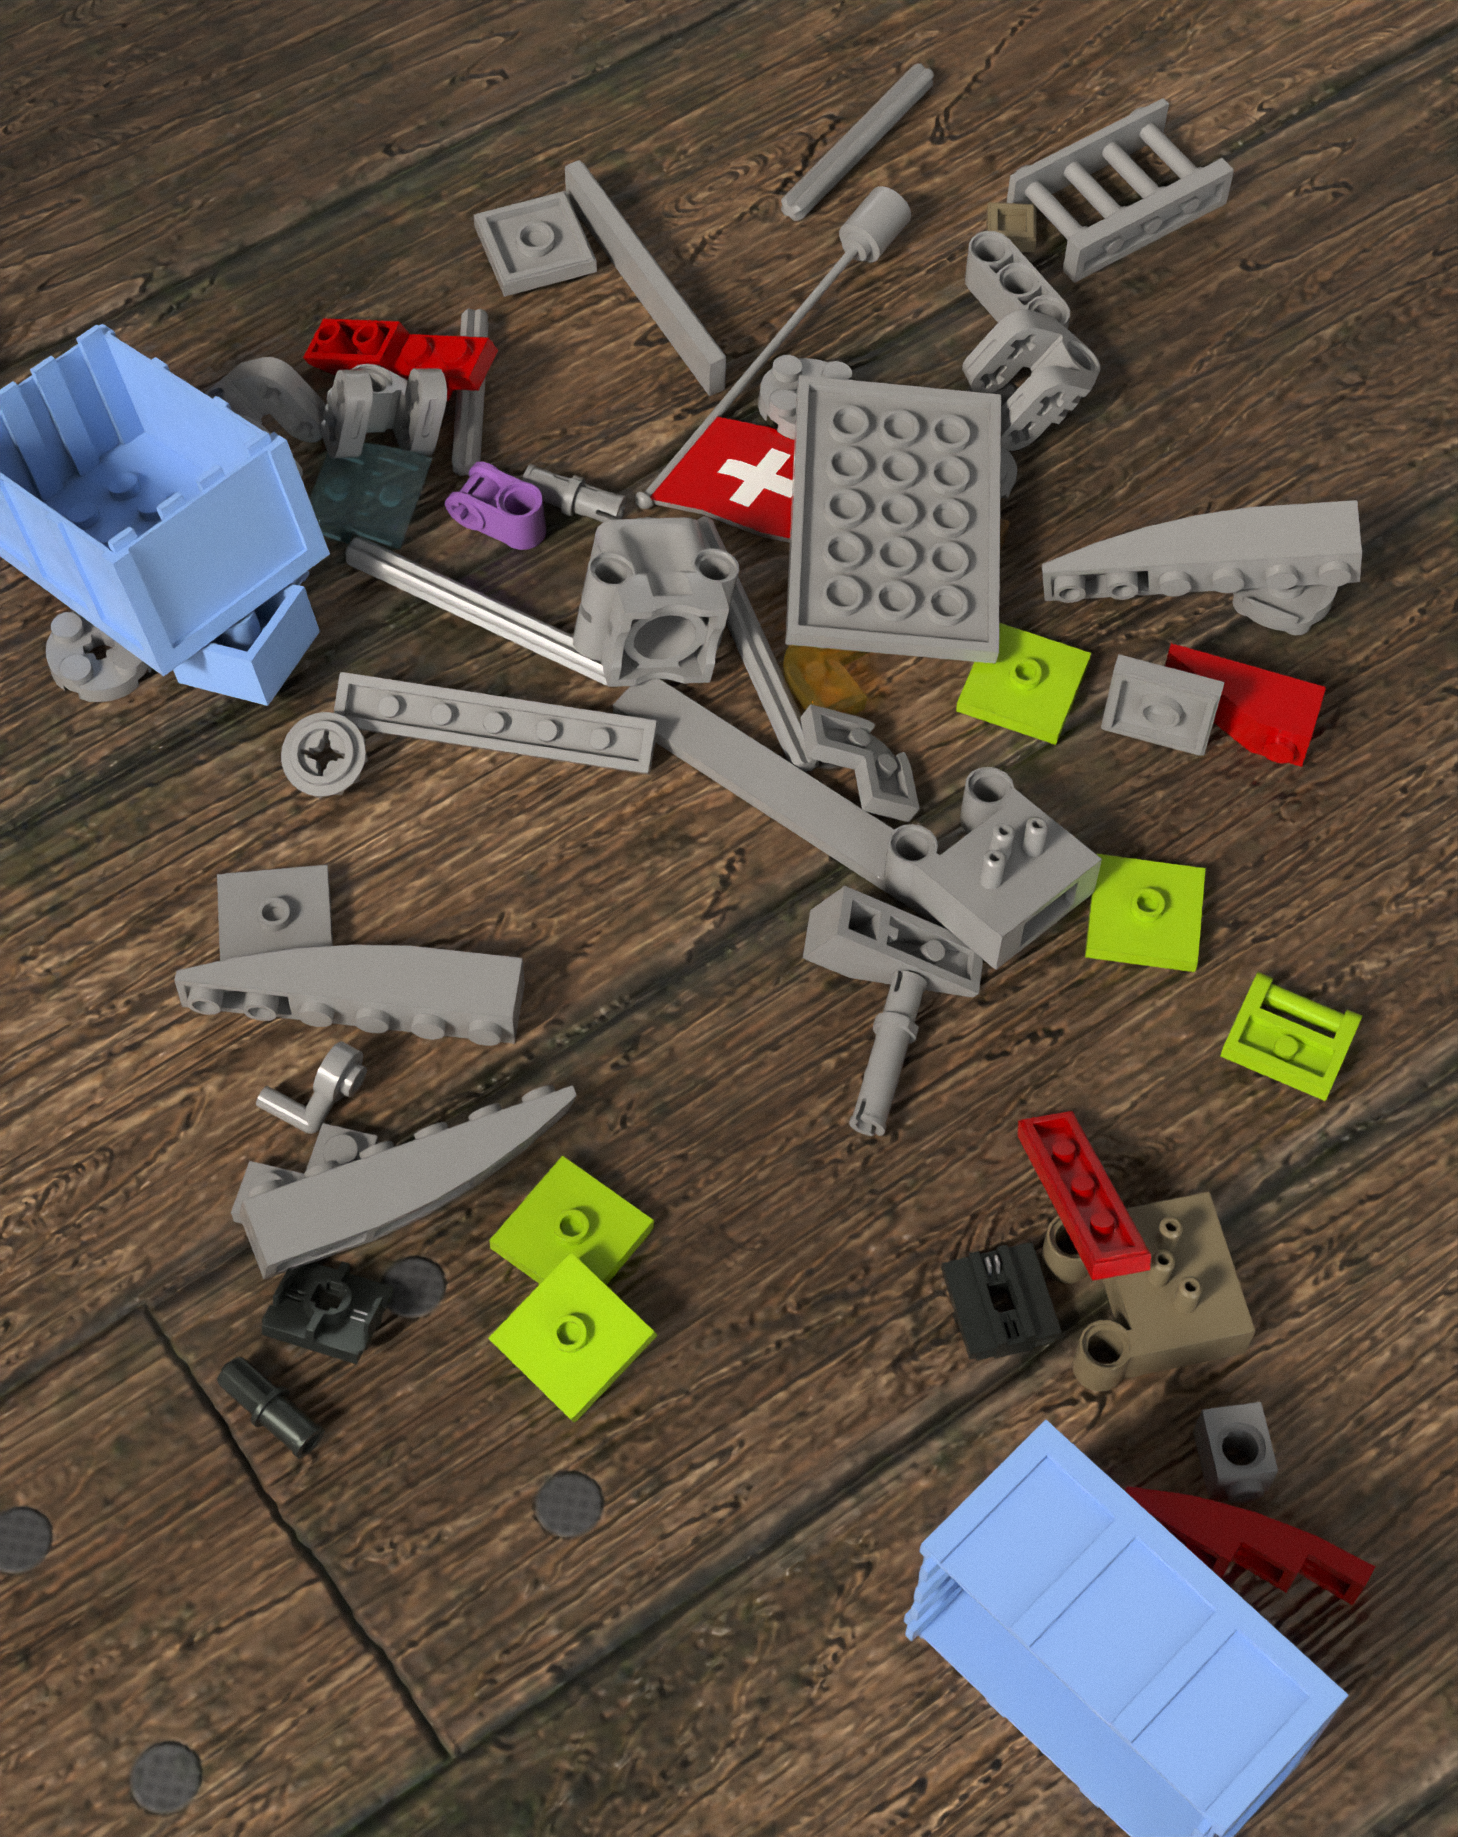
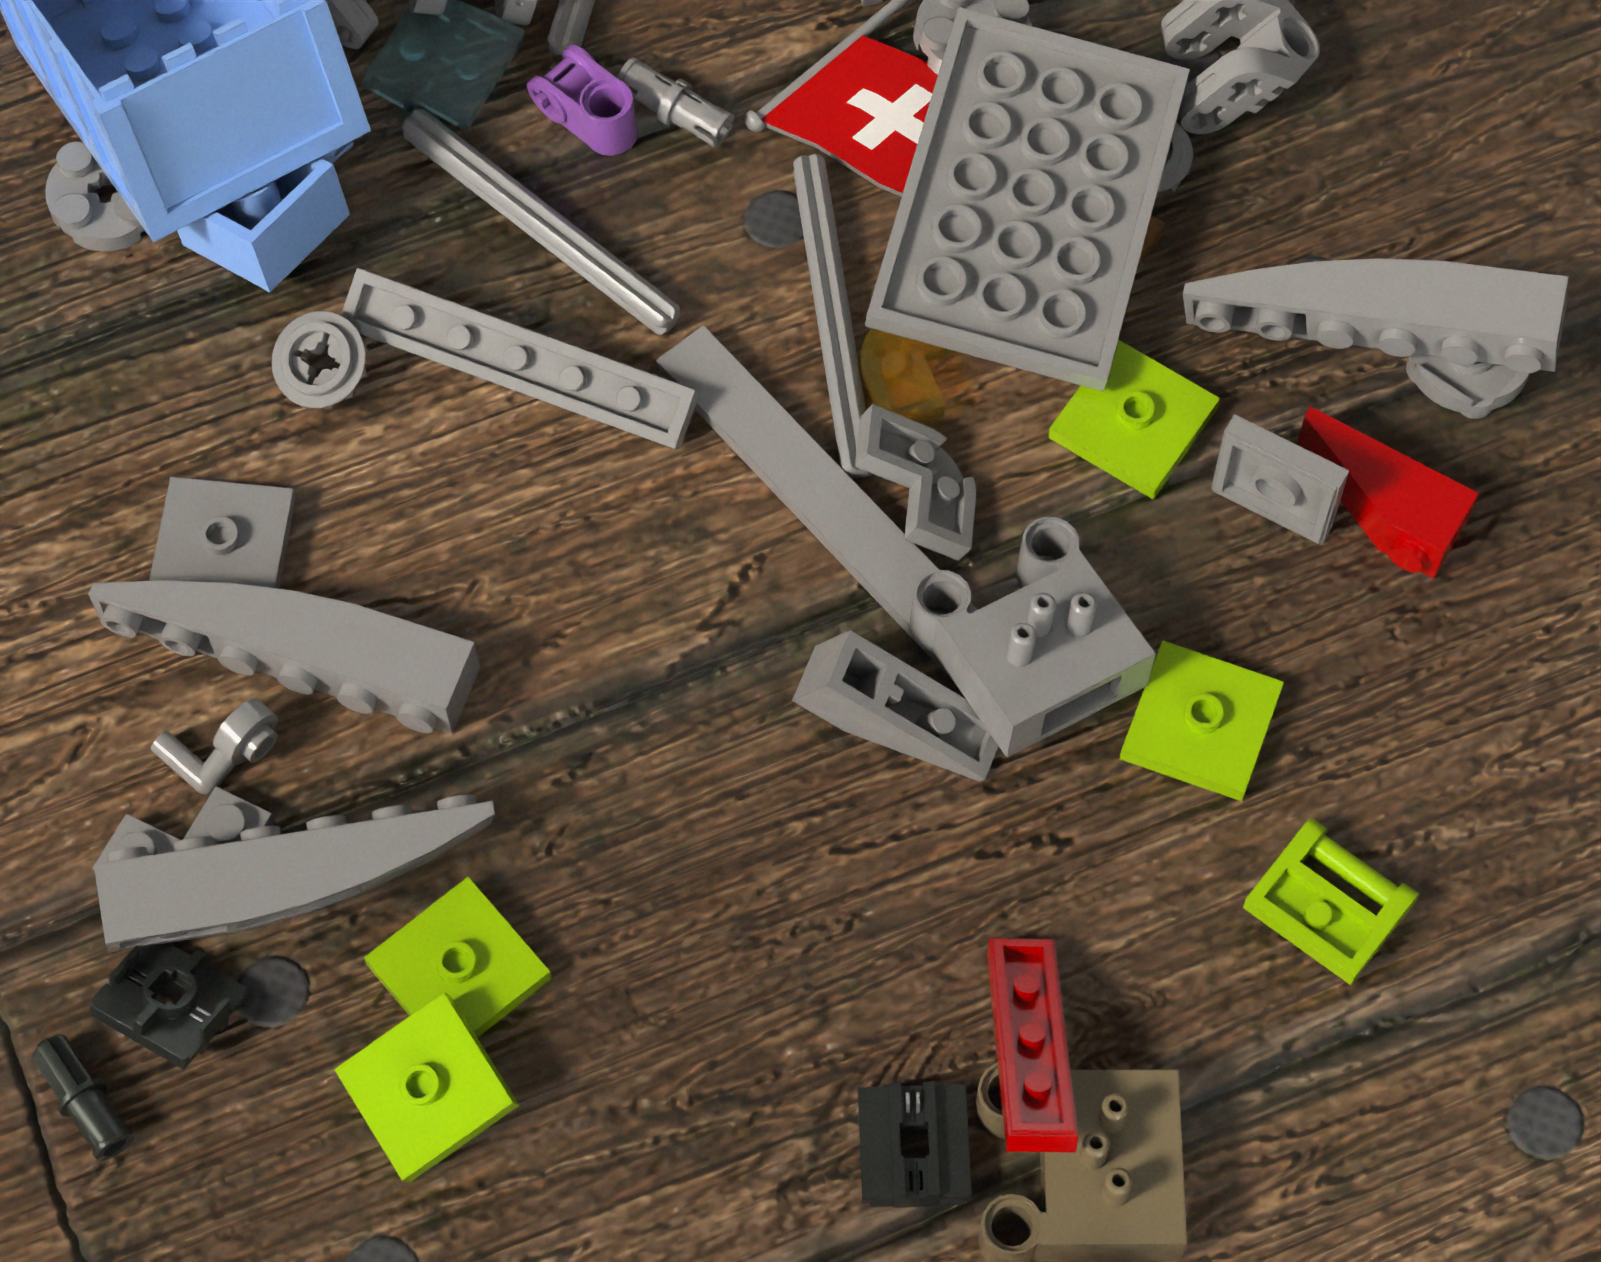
camera: 15 degrees right, 5 degrees up
(654, 601) = (725, 249): light grey piece -> none
(893, 1031) = (874, 808): light grey pin -> none

